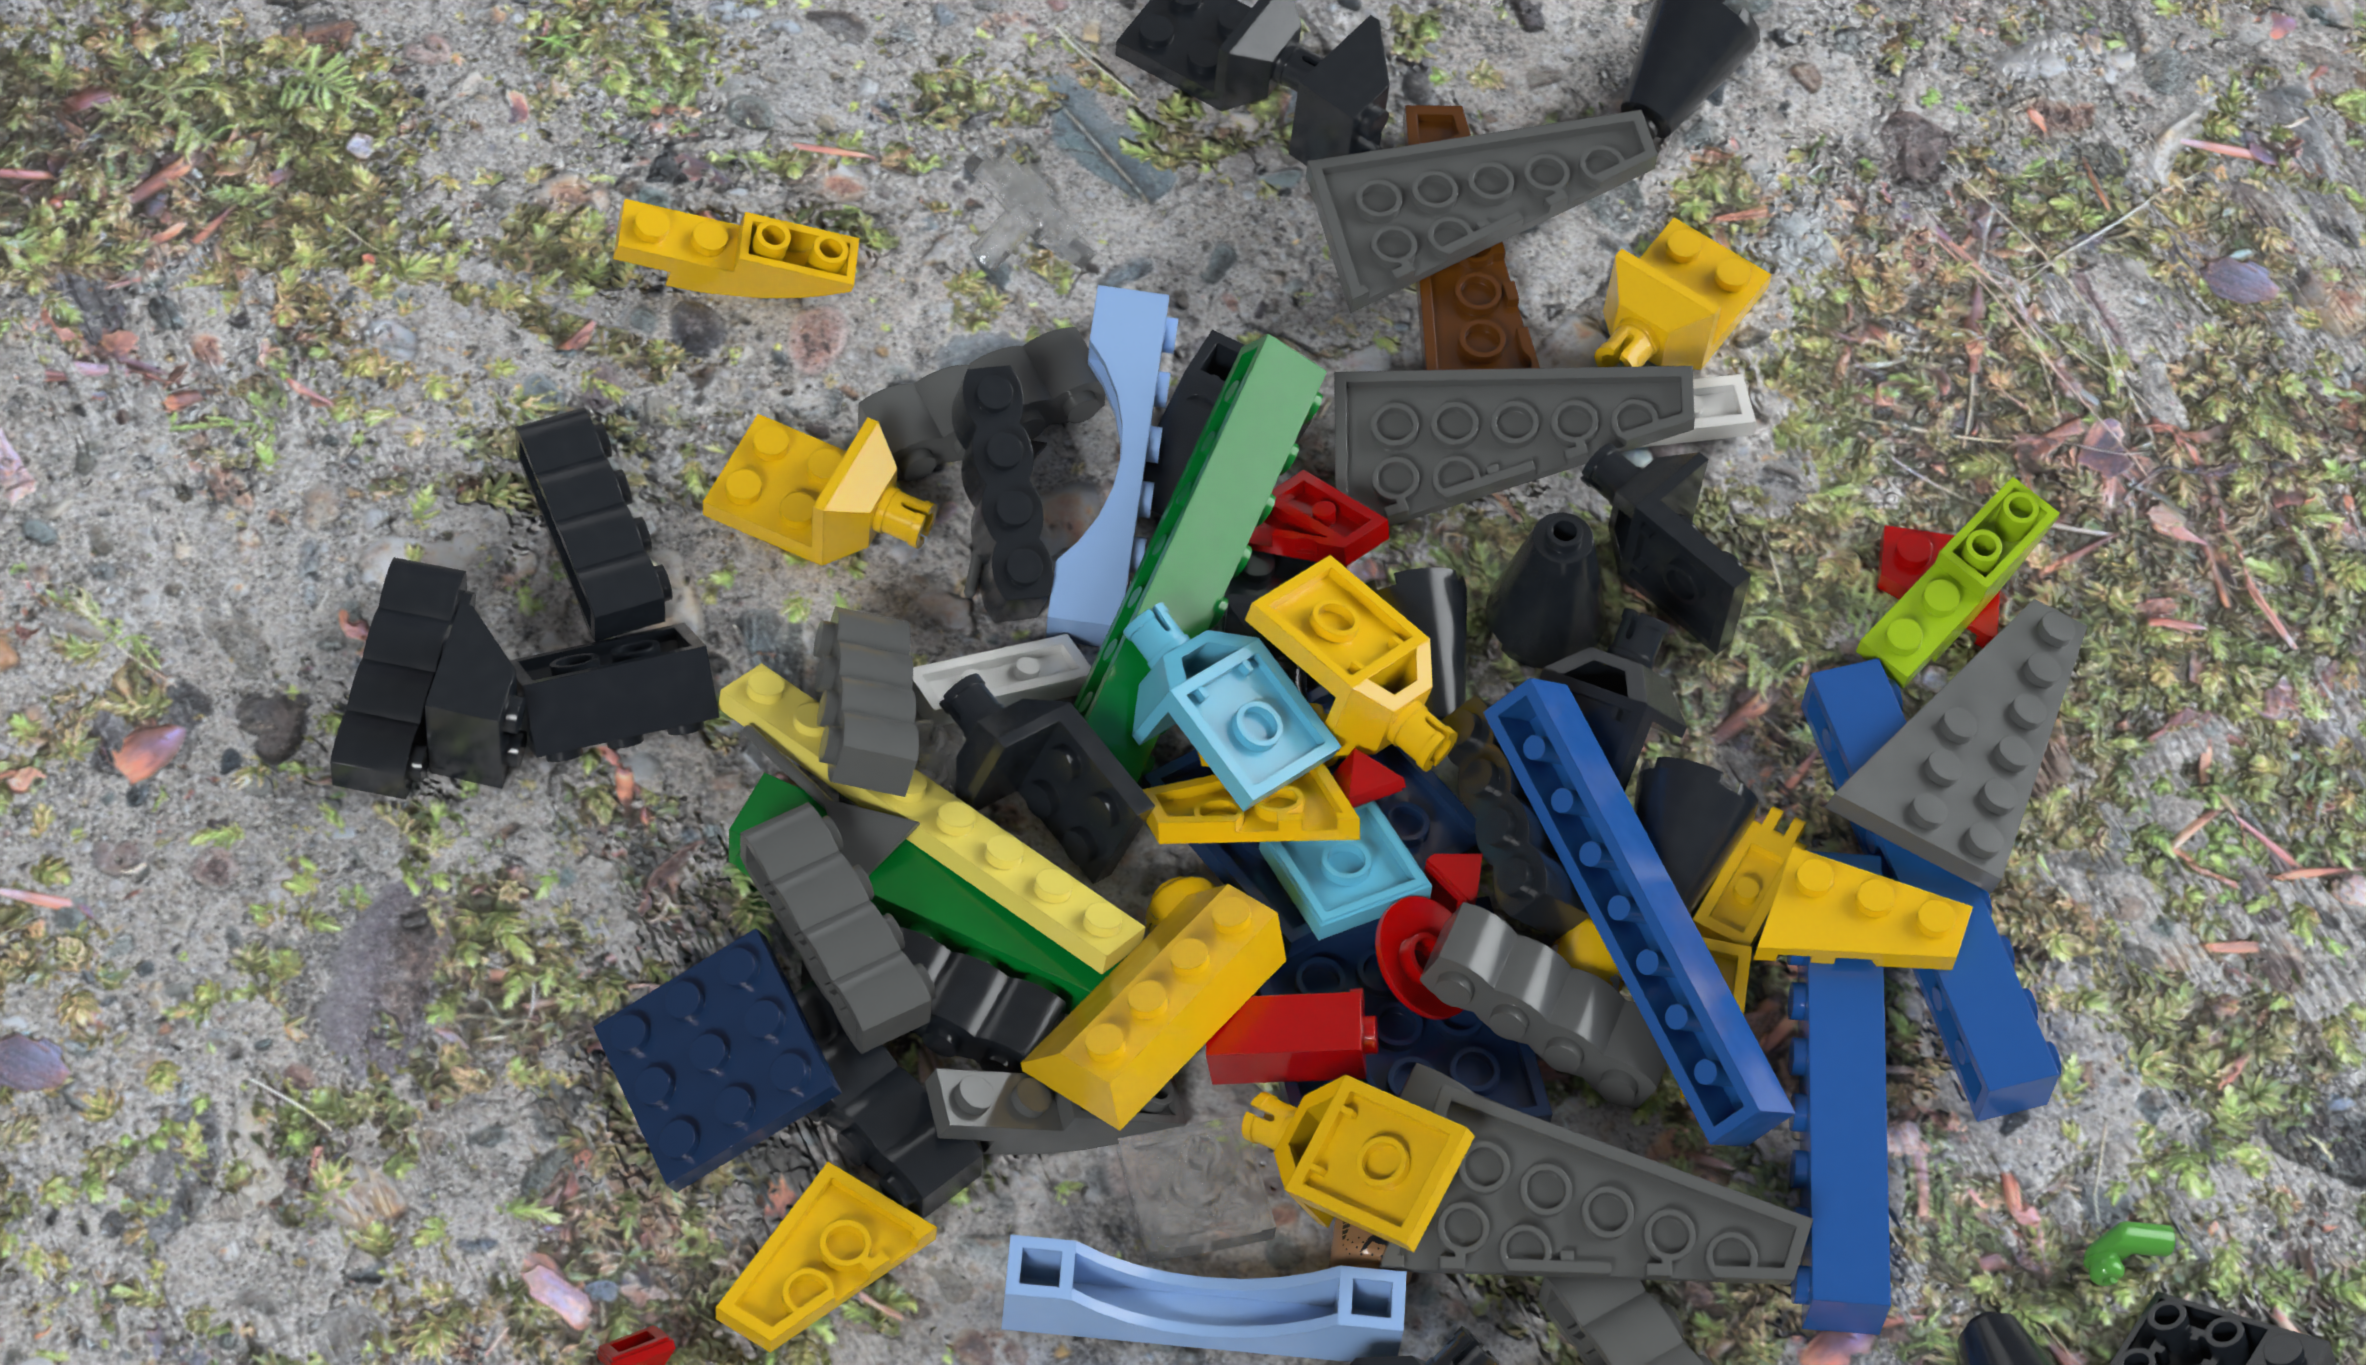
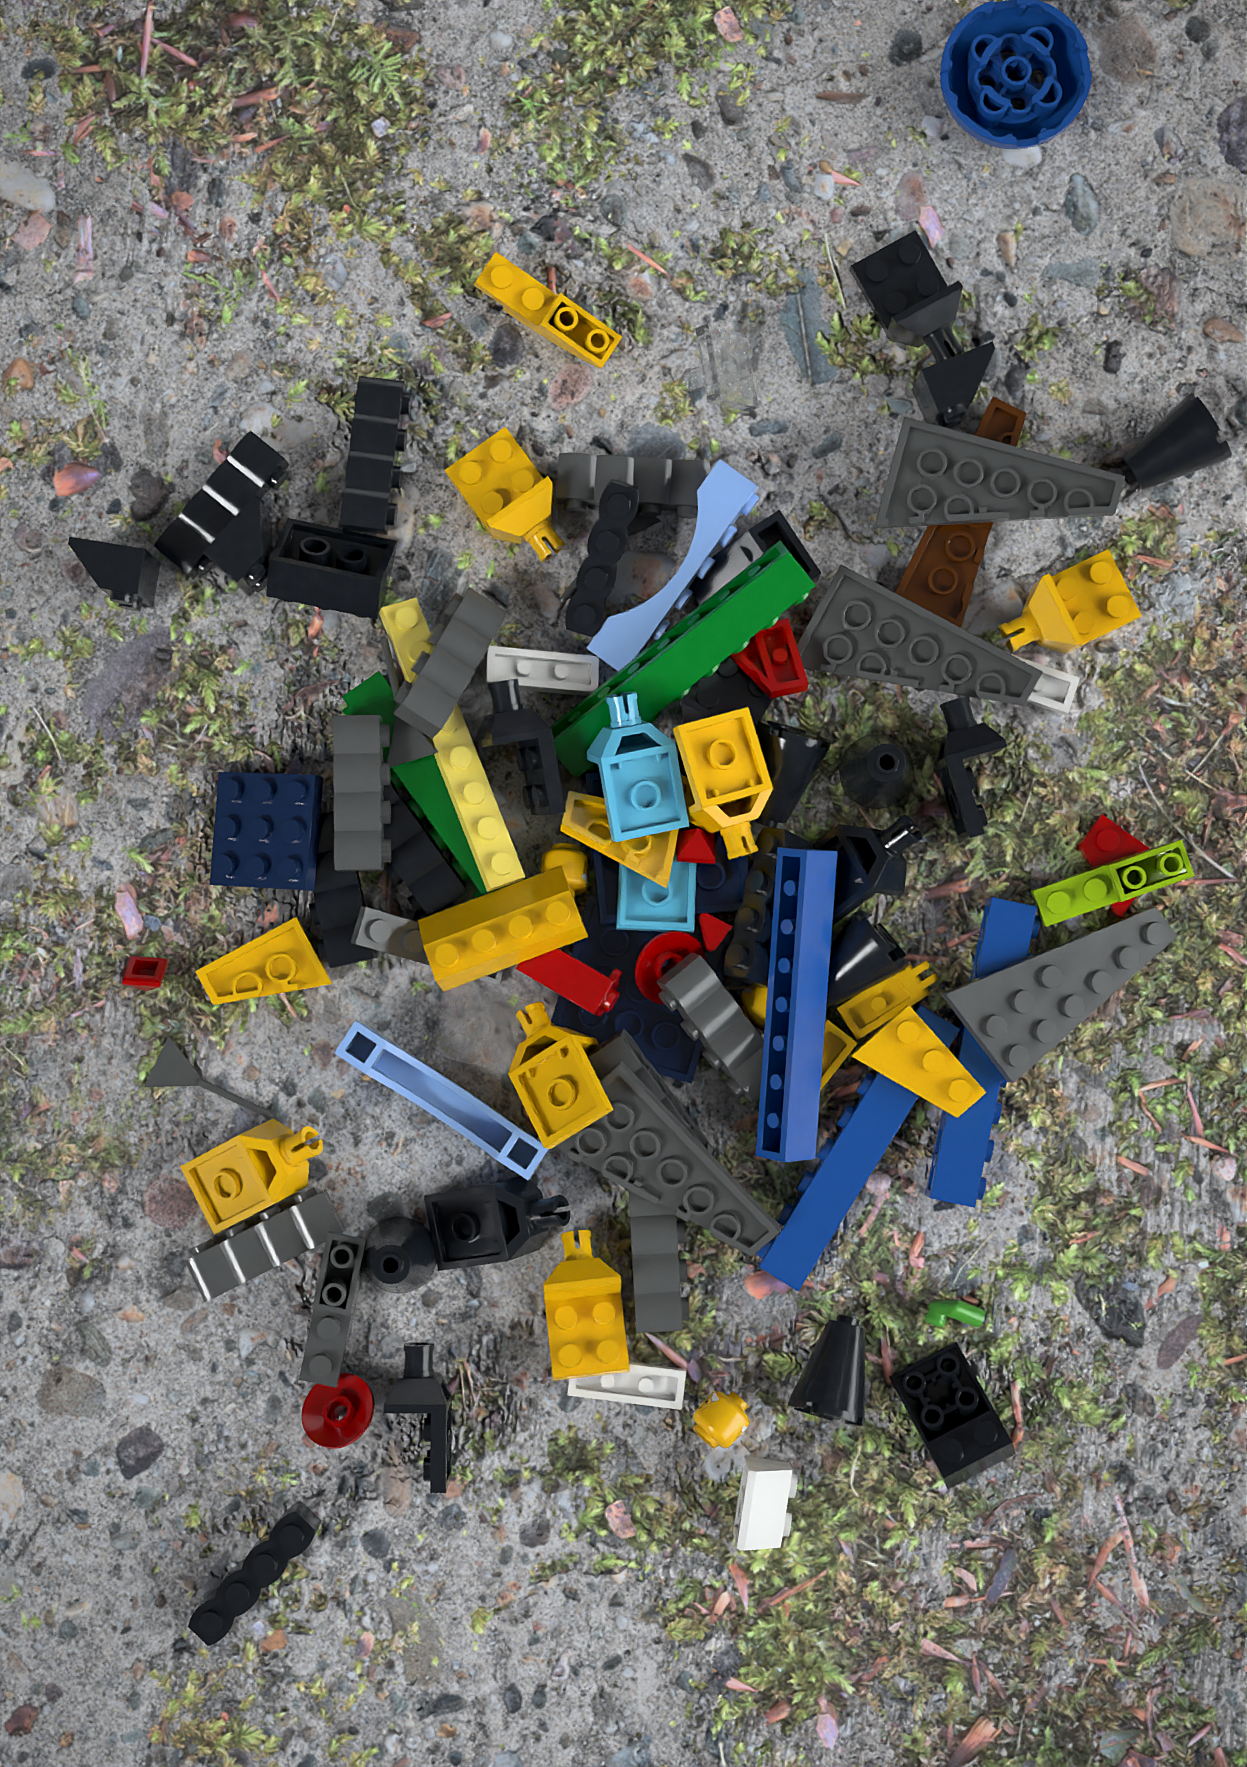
camera: 35 degrees right, 30 degrees up
(291, 811) = (120, 571): none -> black slope

